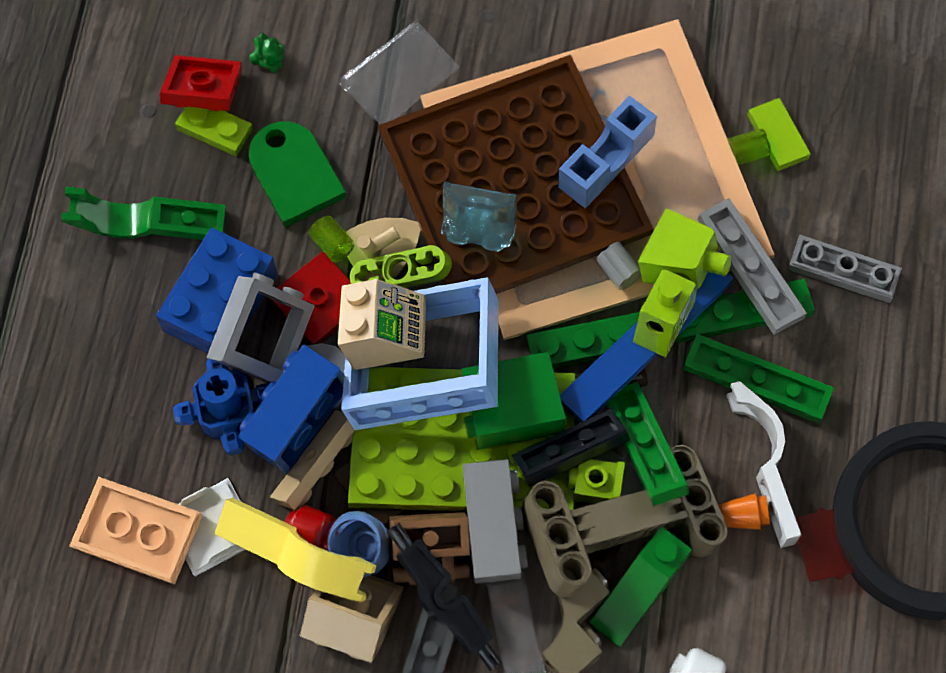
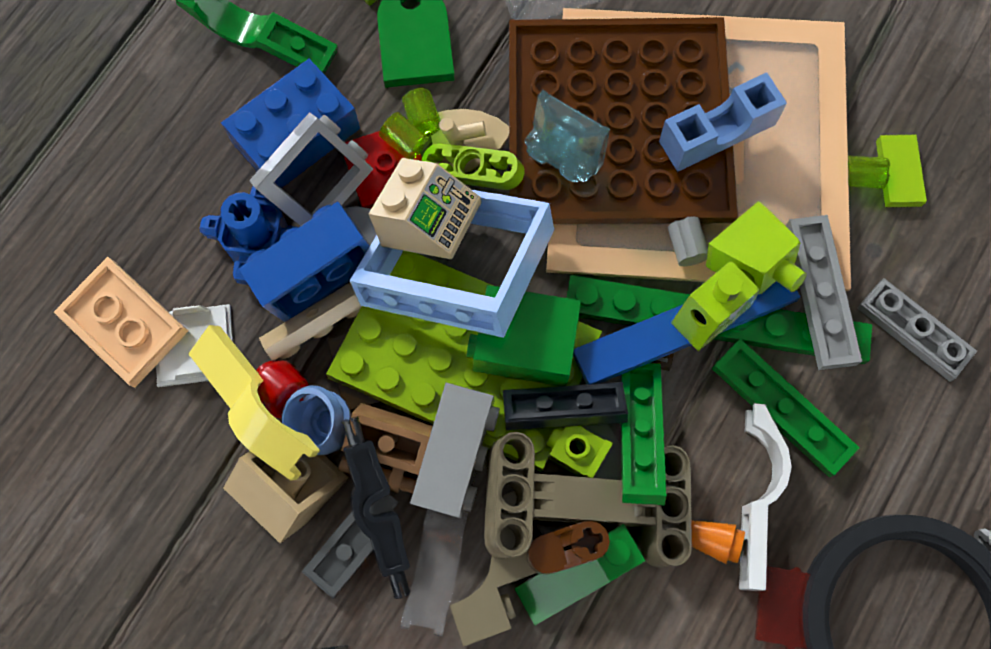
camera: 20 degrees right, 5 degrees up
(326, 266) = (403, 136): none -> clear neon green piece
(637, 551) = (587, 541): none -> reddish brown piece

